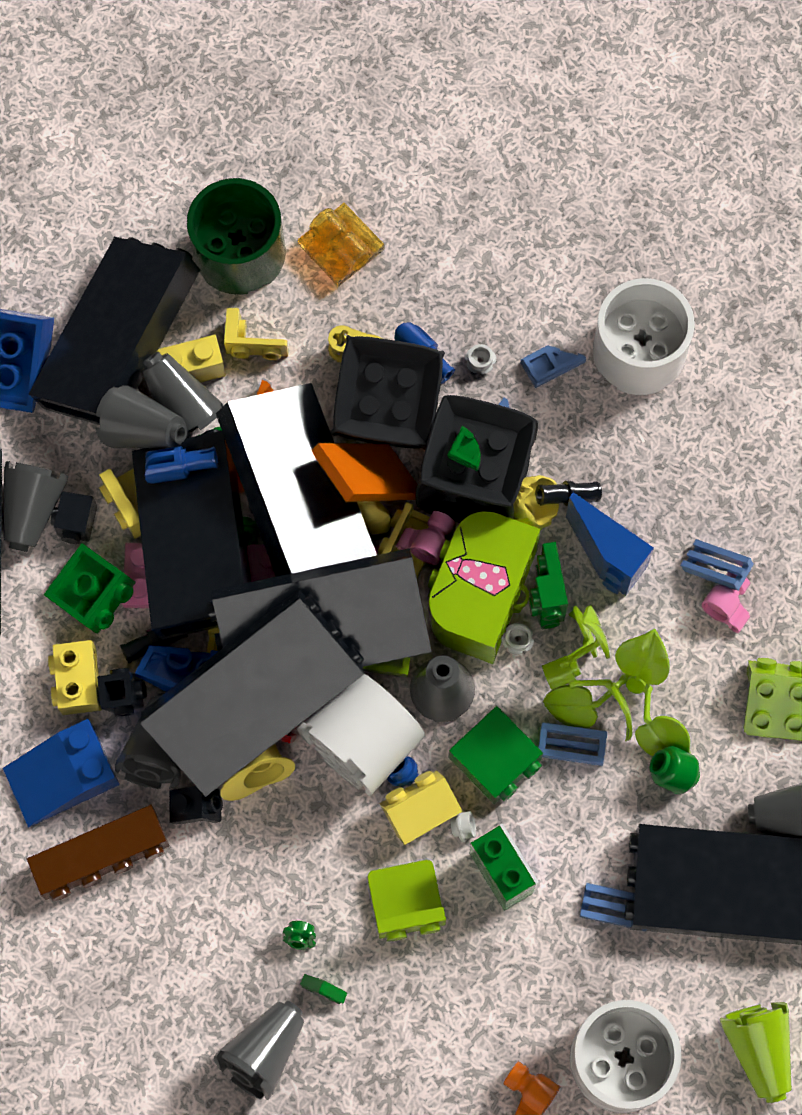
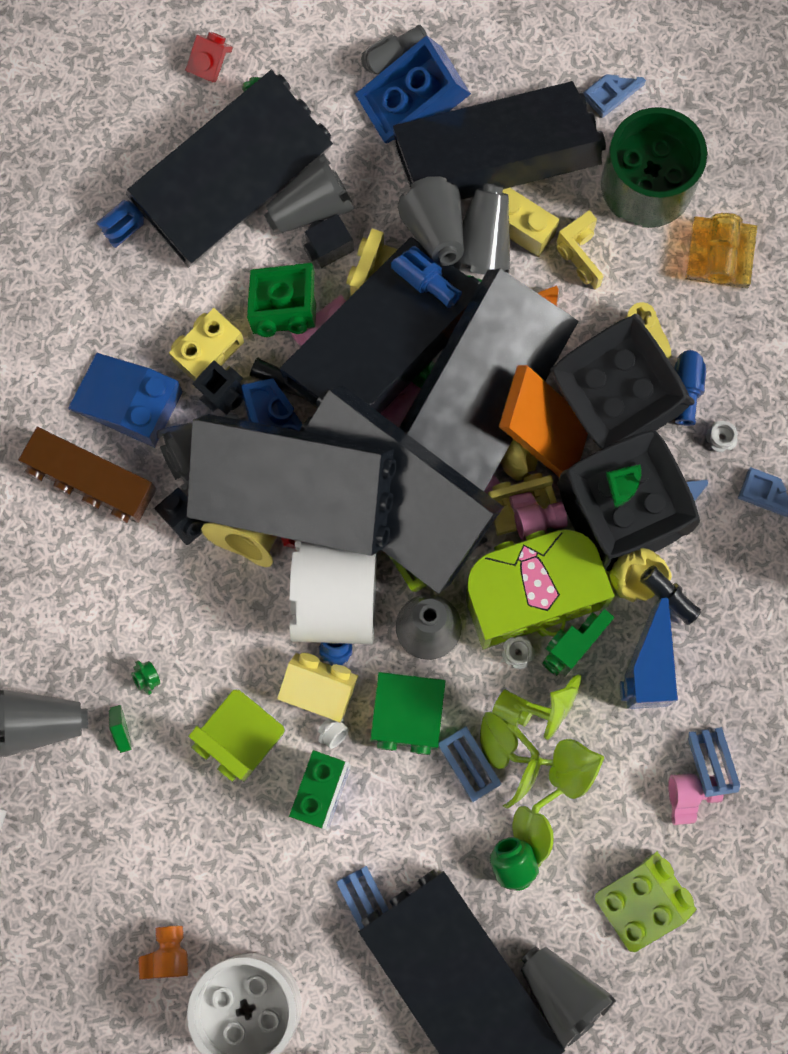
camera: 50 degrees right, 5 degrees up
(145, 218) = (611, 92): none -> medium blue tile

